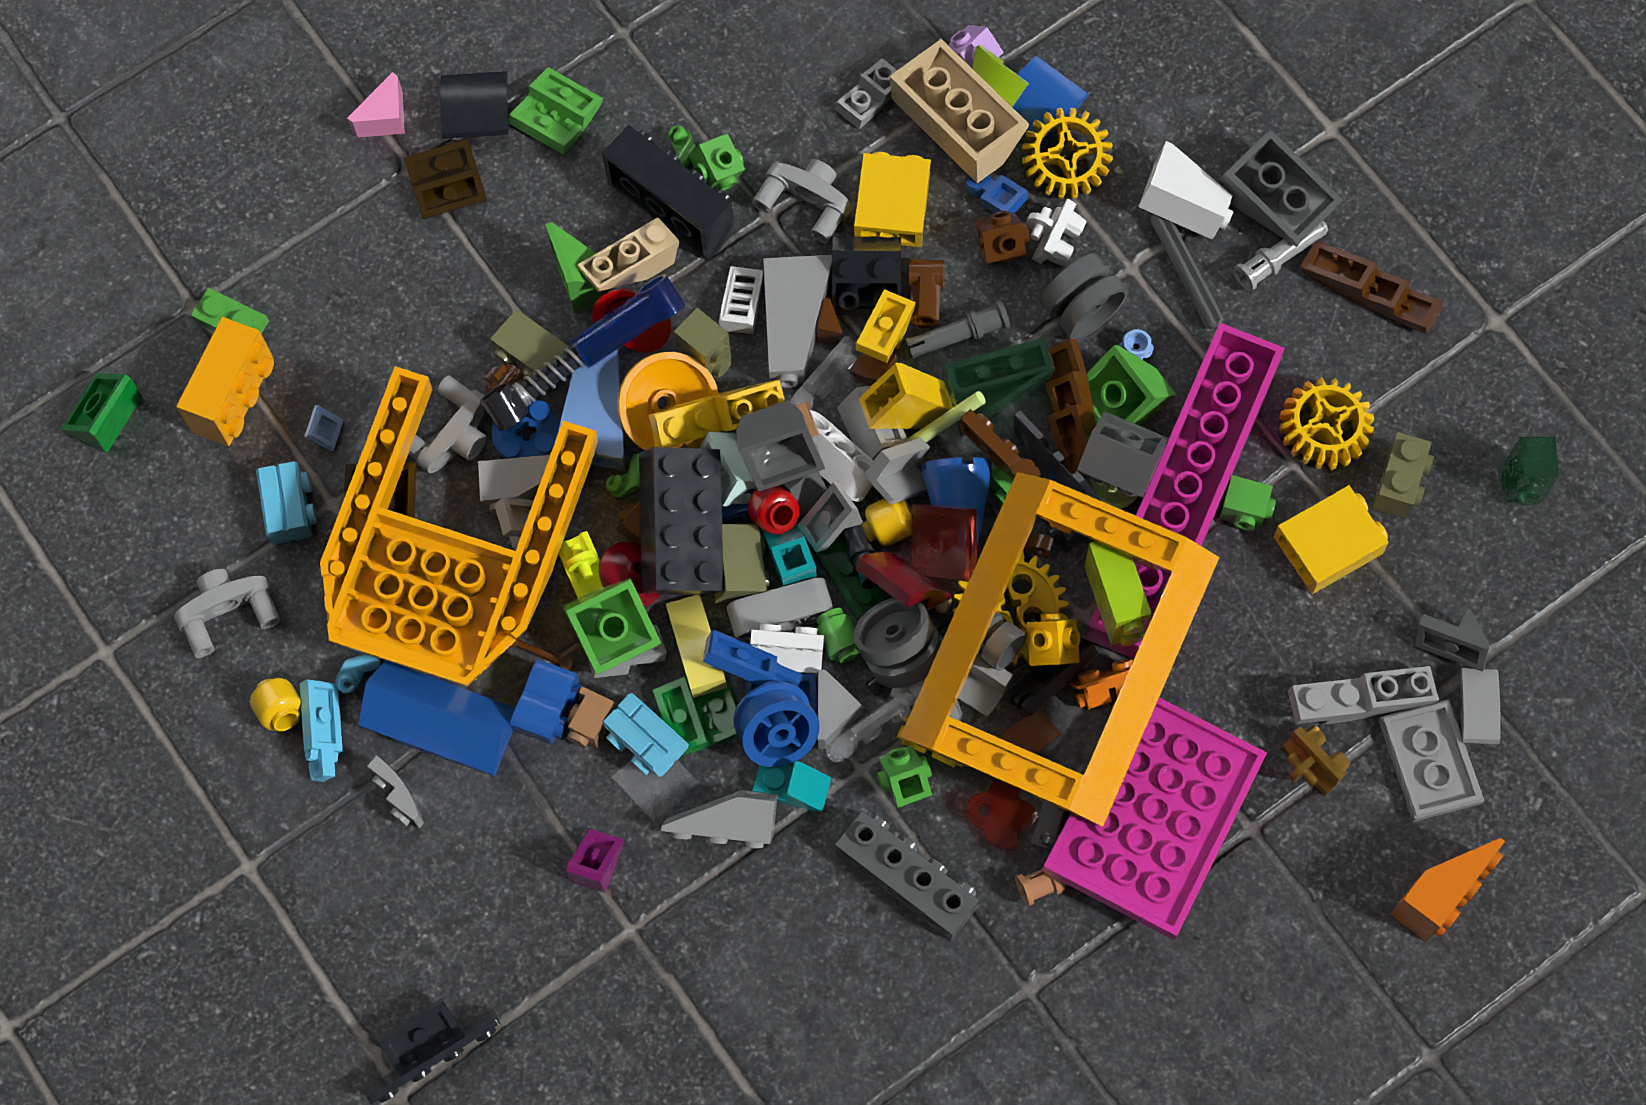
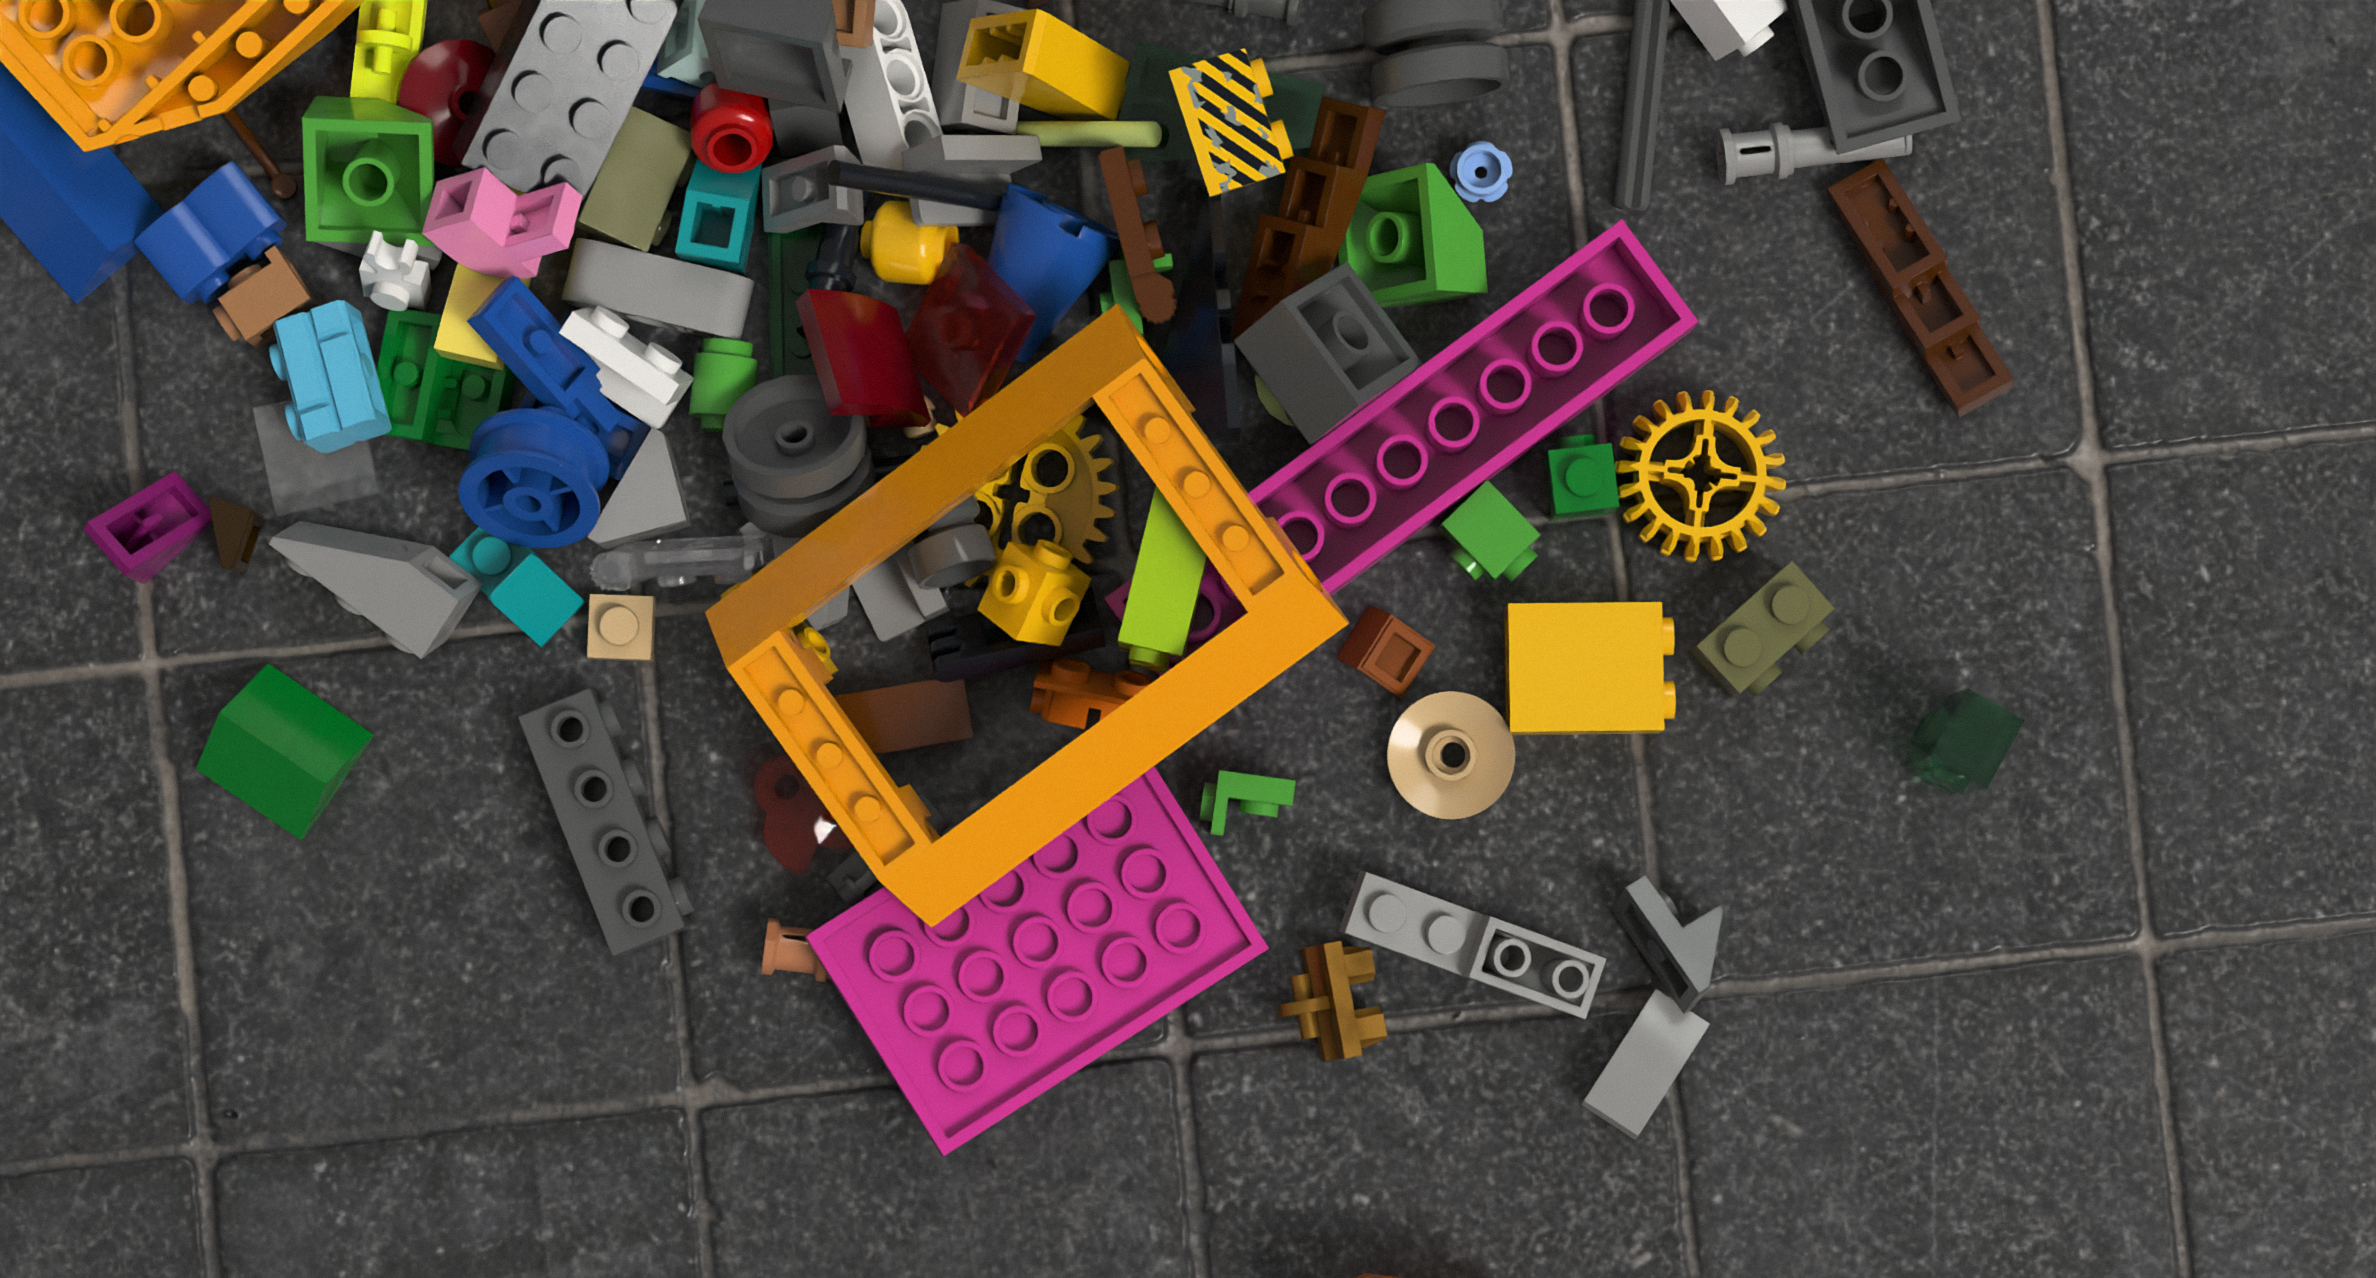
camera: 25 degrees right, 15 degrees up
(638, 836) = (235, 533): none -> dark brown slope
(648, 669) = (393, 275): none -> white plate
(690, 616) = (494, 229): none -> bright pink brick
(723, 934) = (282, 750): none -> green slope
(856, 780) = (621, 627): none -> tan plate
(880, 483) = (914, 185): none -> black bar
(904, 775) = (686, 671): bright green brick -> none
(1012, 373) = (1230, 121): none -> slope
(1215, 682) = (1257, 794): none -> bright green bracket
(1231, 586) = (1385, 651): none -> dark orange slope
(1273, 454) = (1580, 478): none -> green brick
(1300, 596) = (1418, 763): none -> tan dish
(1431, 760) = (1518, 1101): light grey tile -> none

